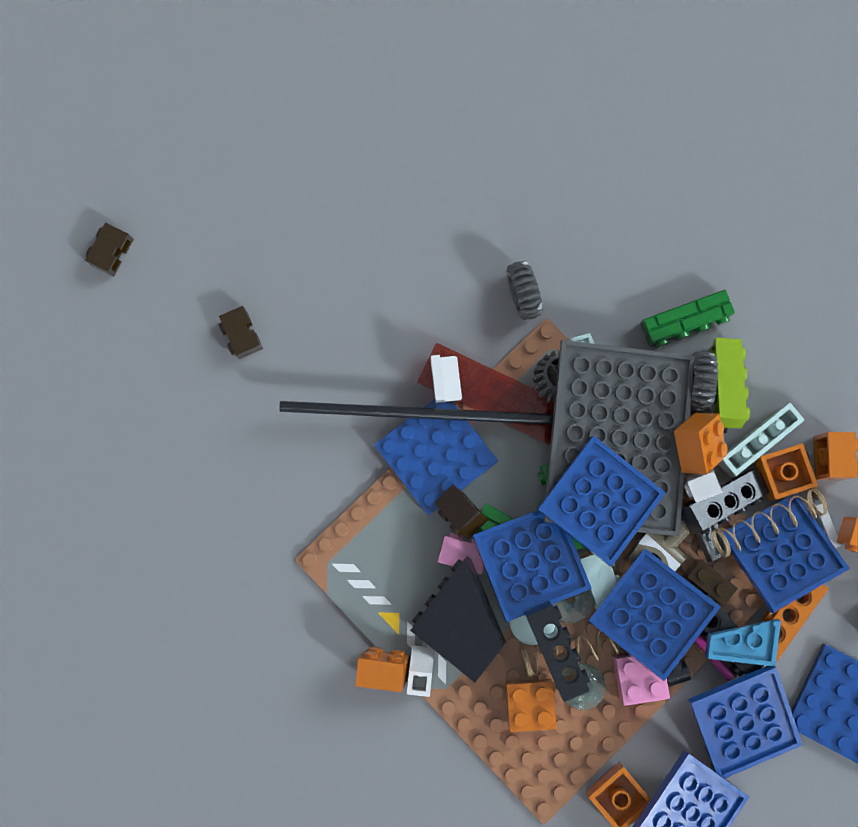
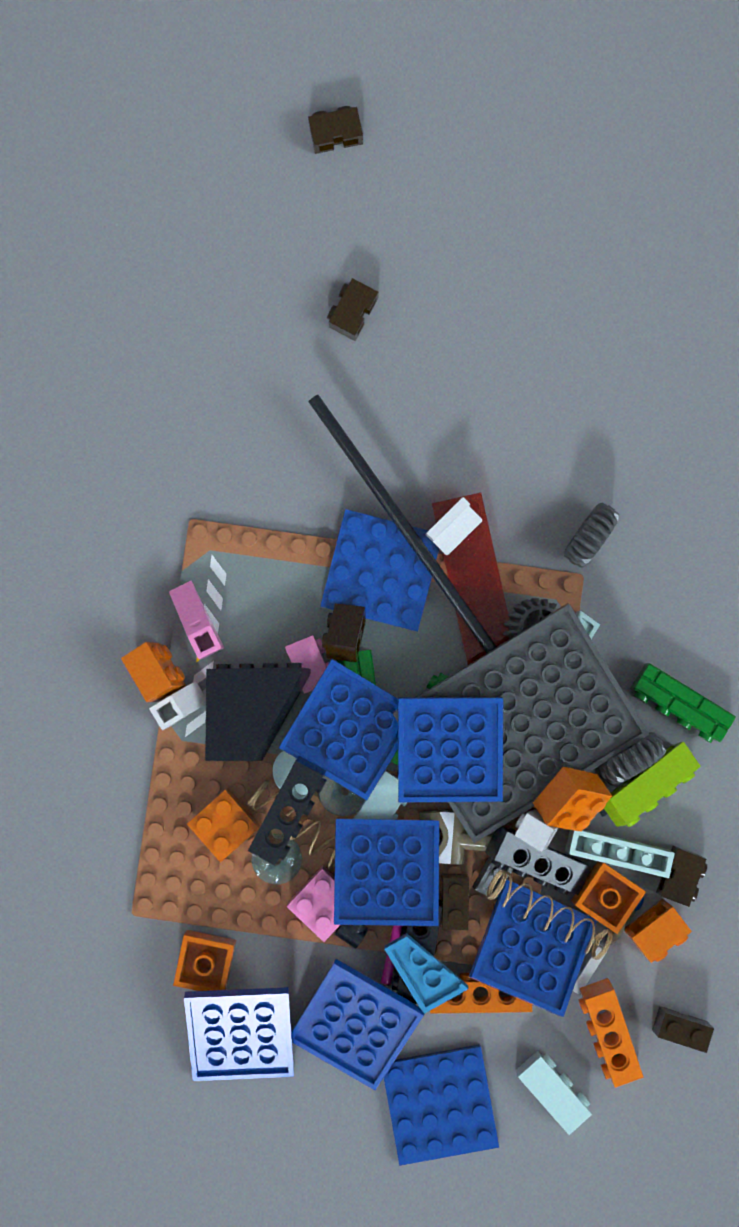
camera: 50 degrees right, 5 degrees up
(369, 611) = (196, 620): none -> bright pink slope
(811, 408) = (683, 878): none -> dark brown brick

